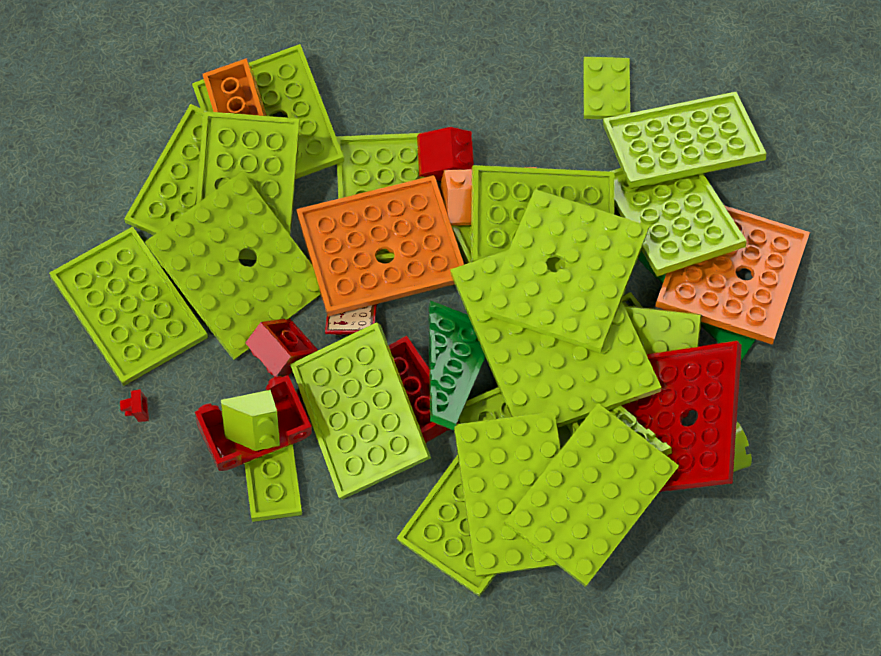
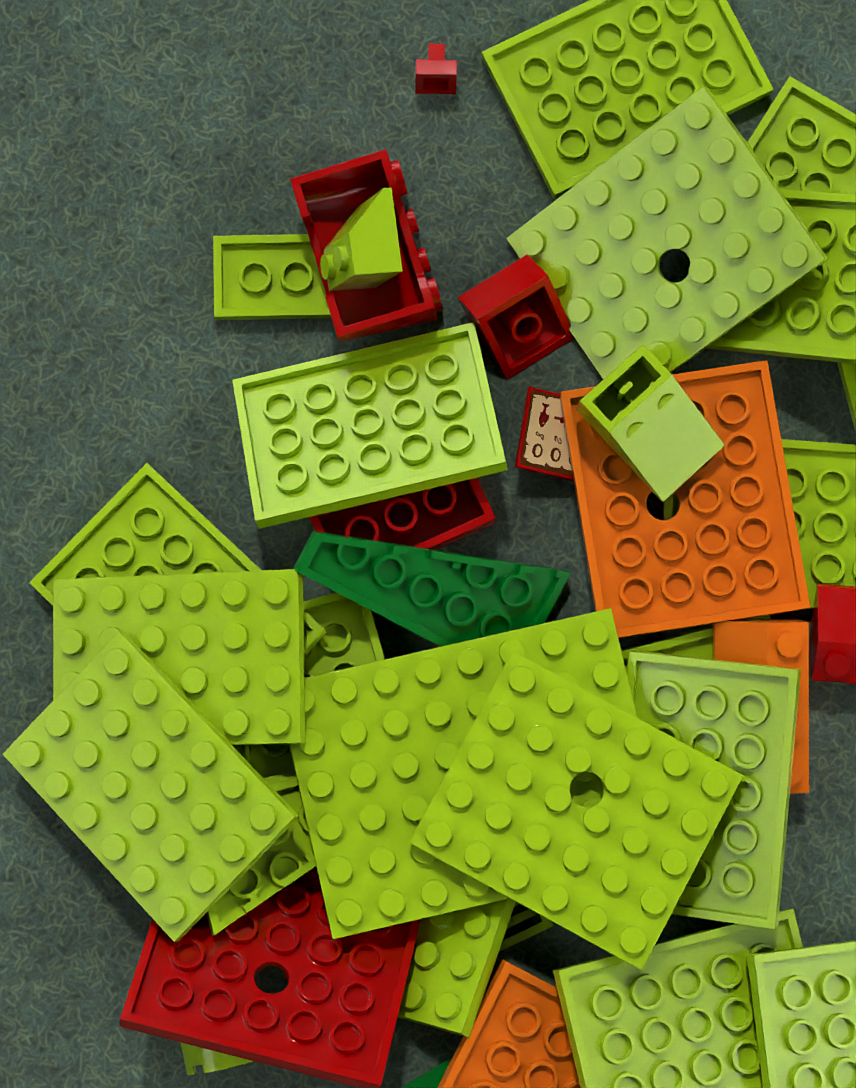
camera: 95 degrees right, 20 degrees up
(340, 259) = (650, 423): none -> lime slope

